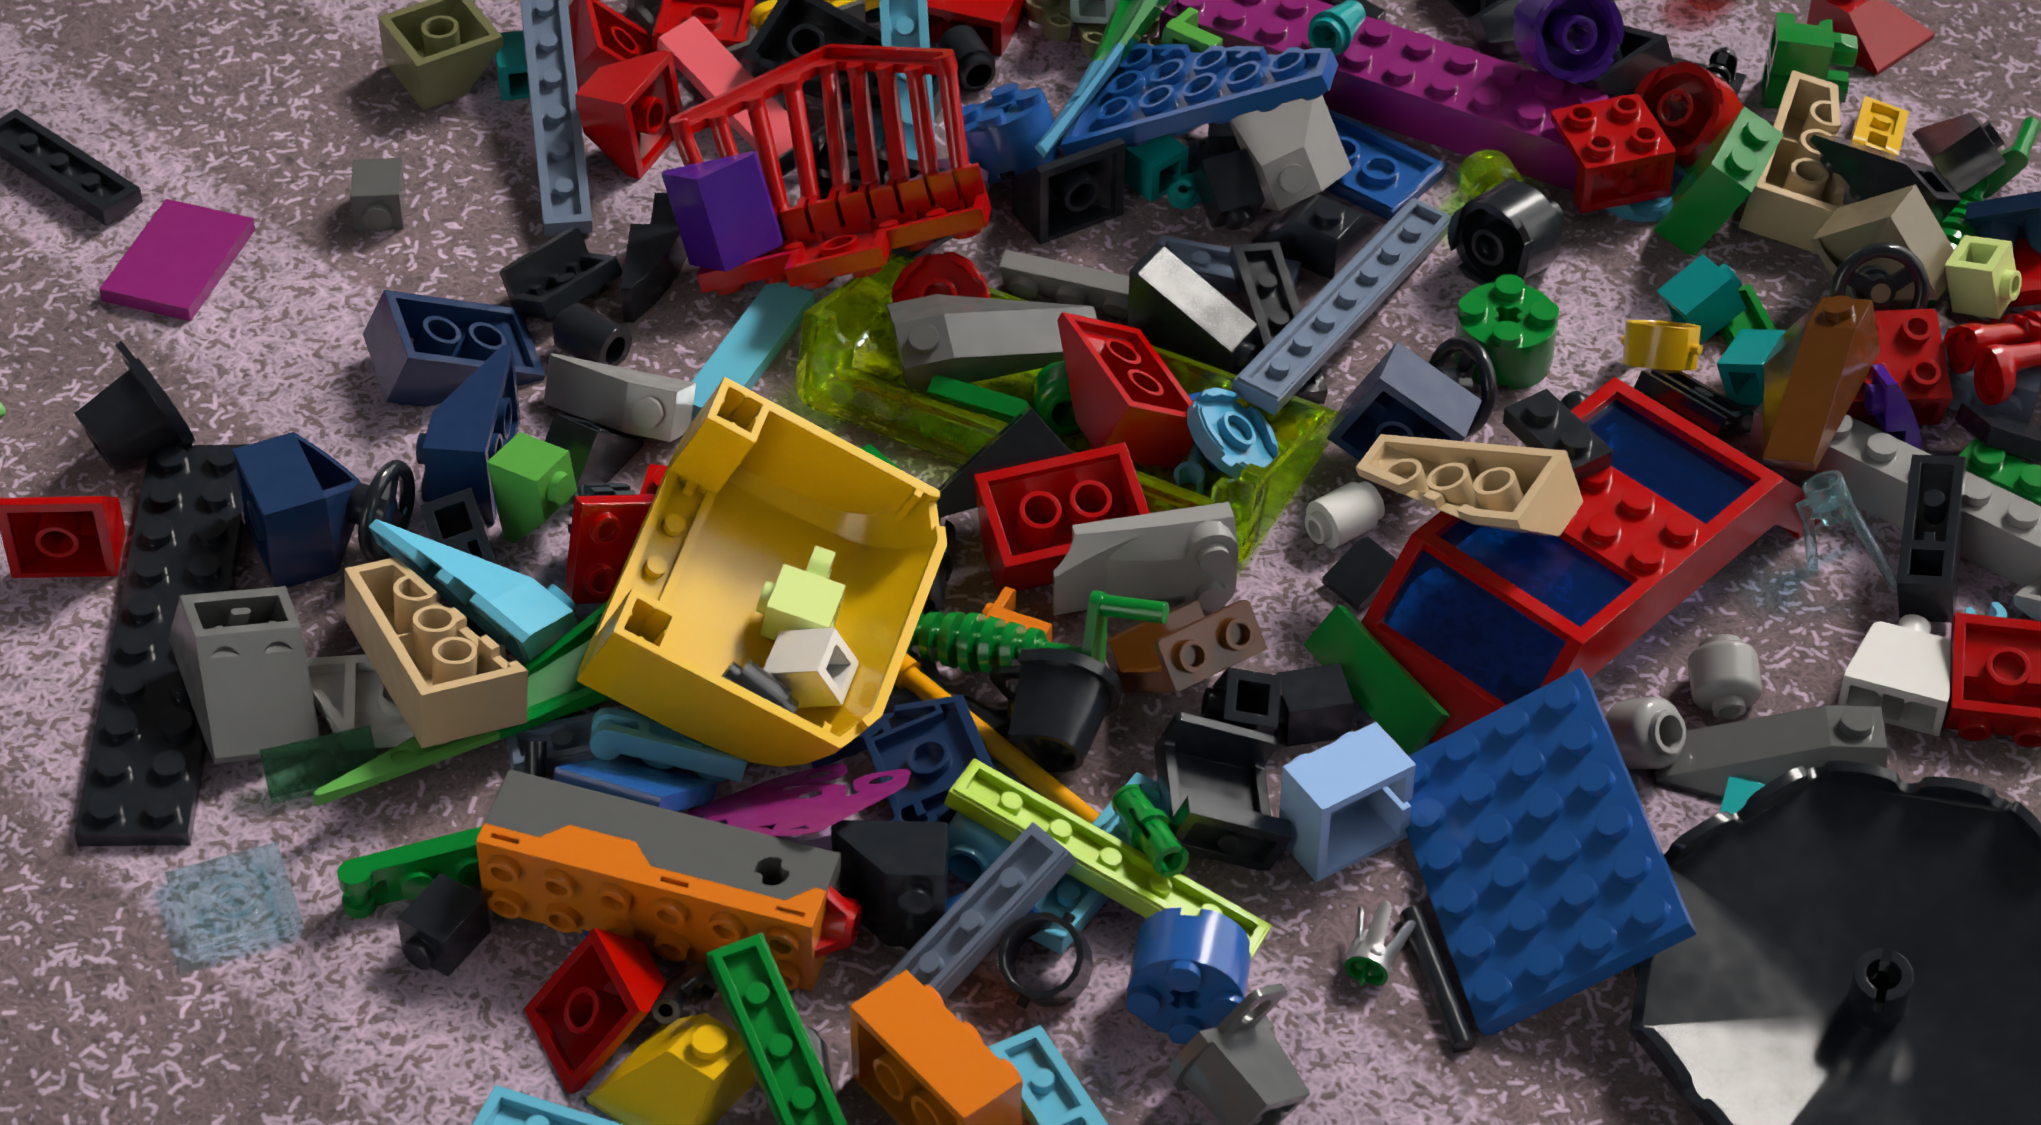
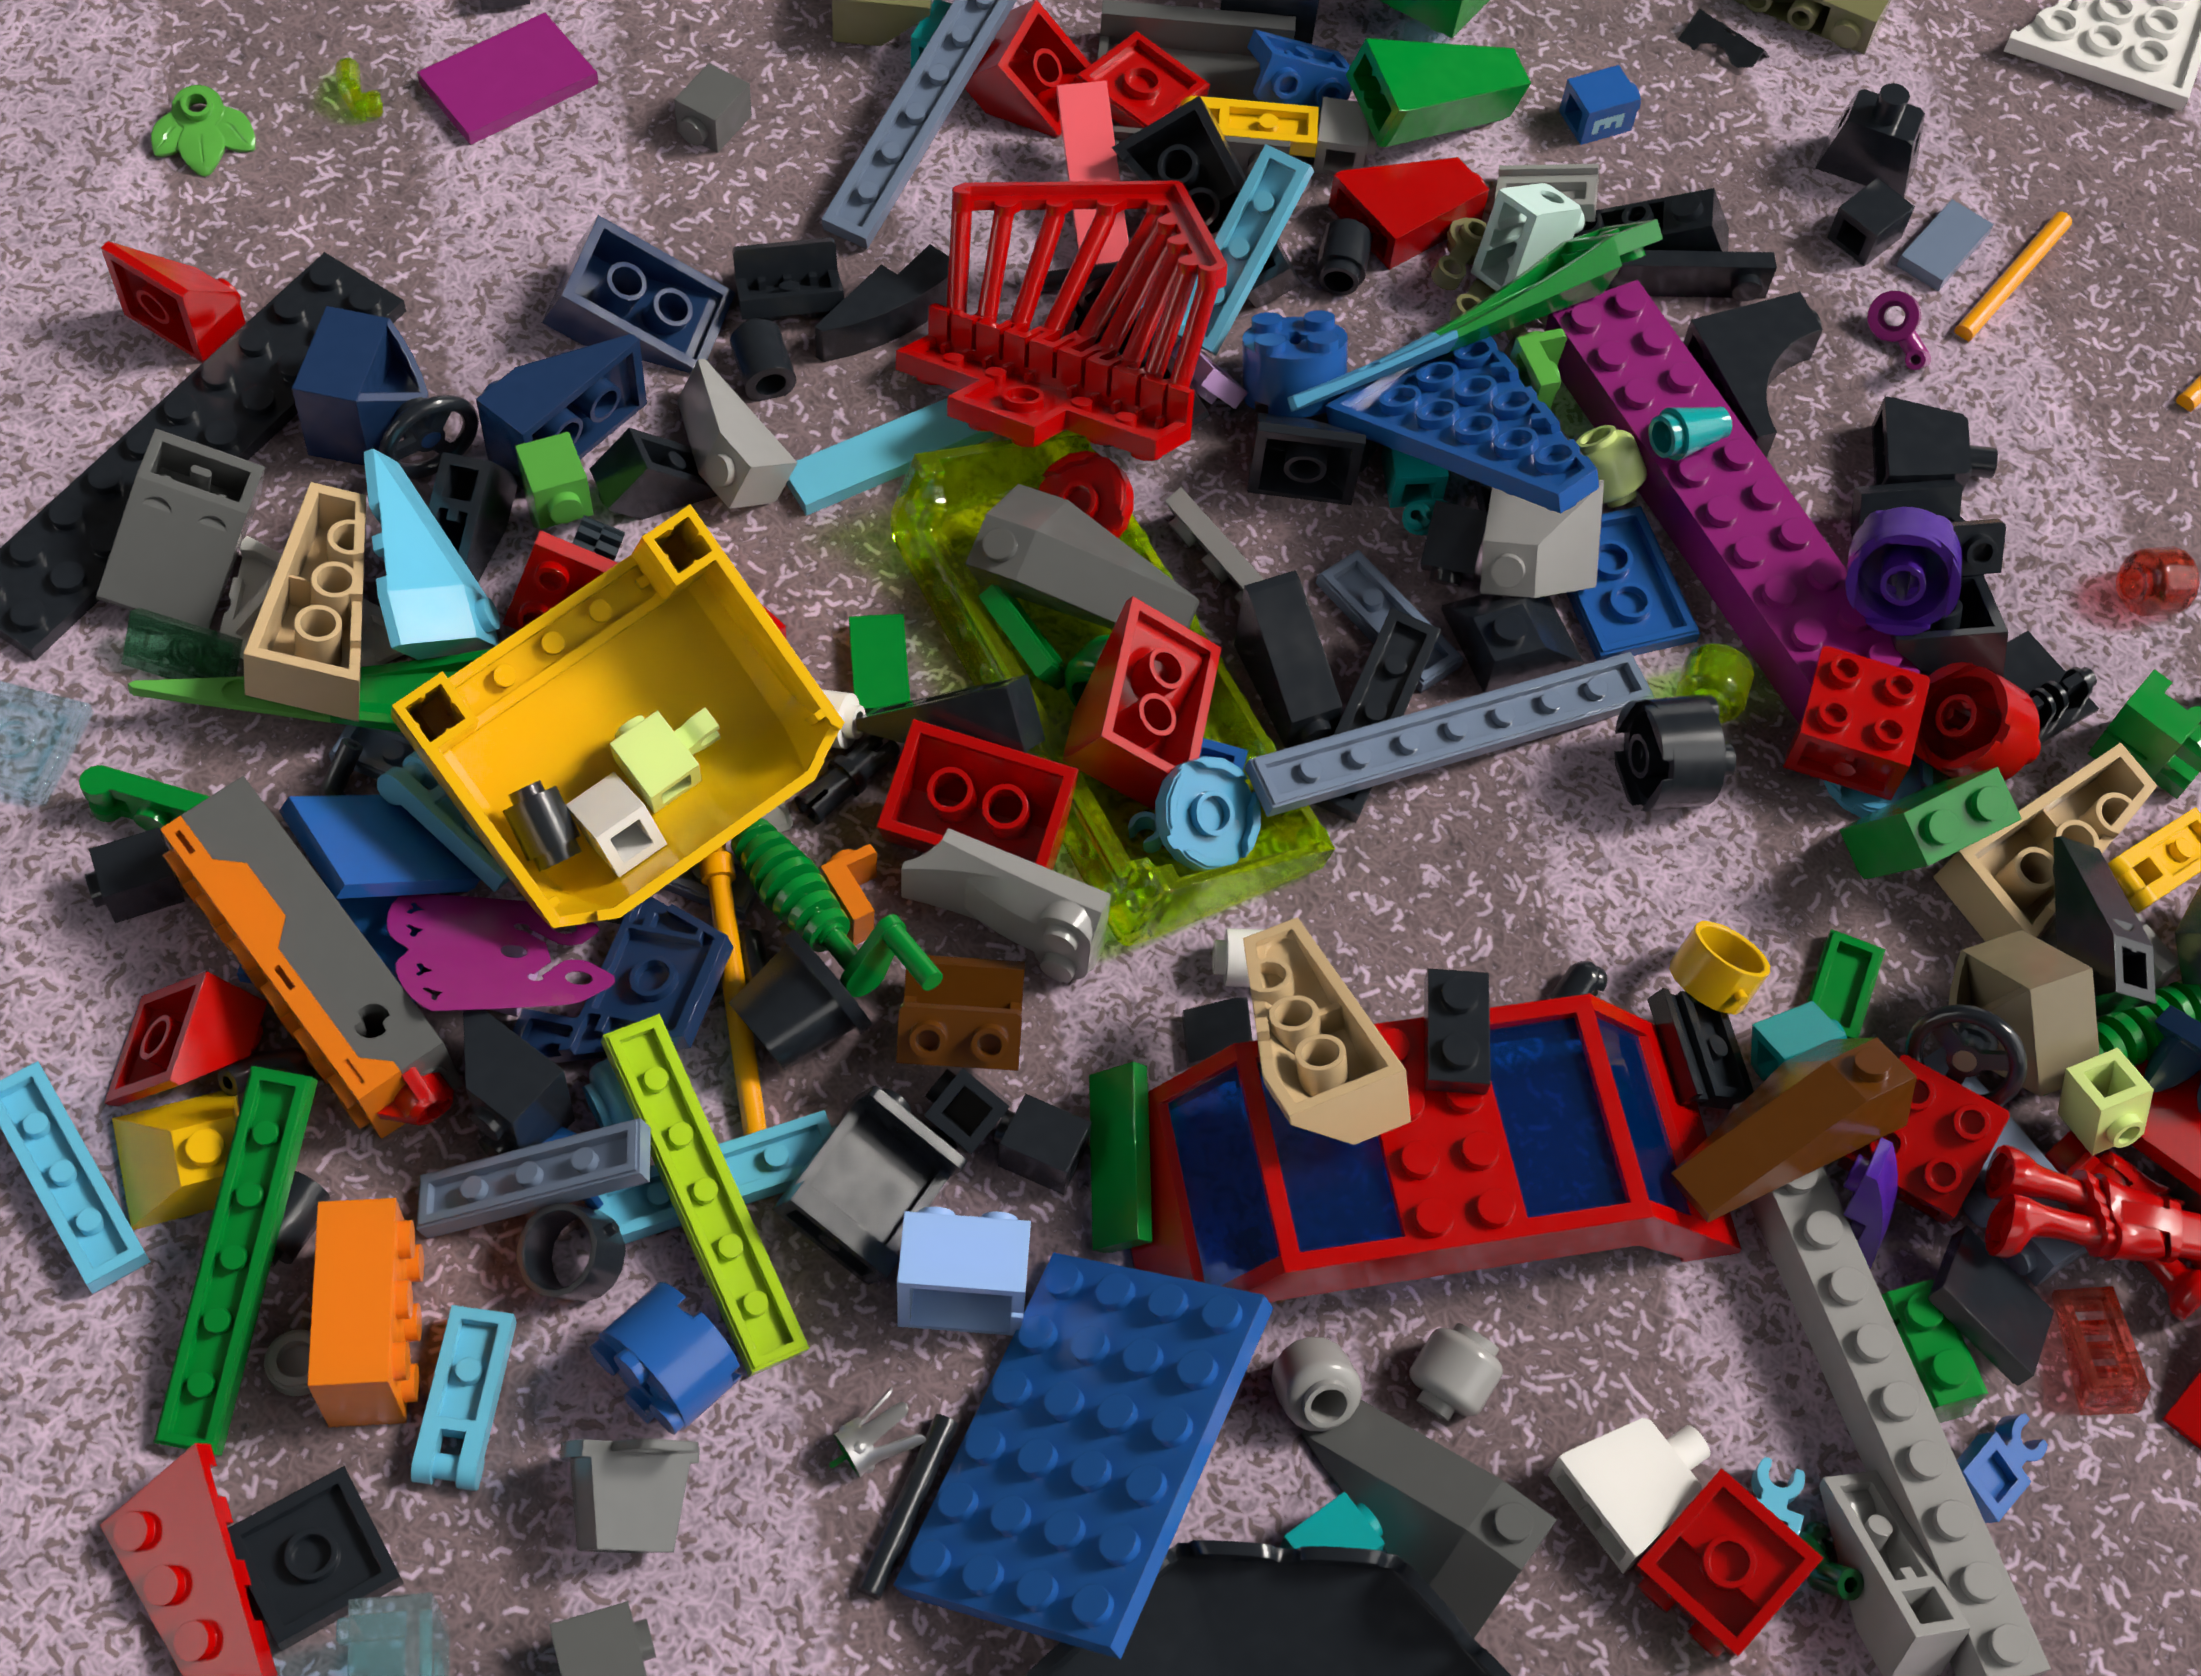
camera: 30 degrees right, 15 degrees up
(58, 328) = (348, 84): none -> clear neon green arm
(132, 417) = (322, 216): black container -> none
(629, 110) = (985, 139): red slope -> none
(723, 211) = (953, 304): dark purple slope -> none
(1150, 830) = (761, 1186): green pin -> none
(1418, 398) = (1402, 894): dark blue piece -> none
(1513, 327) = (1579, 859): green brick -> none
(1703, 296) = (1809, 940): teal brick -> none
(1832, 503) = (1710, 1257): clear light blue plant -> none
(1932, 538) = (1786, 1362): black slope -> none

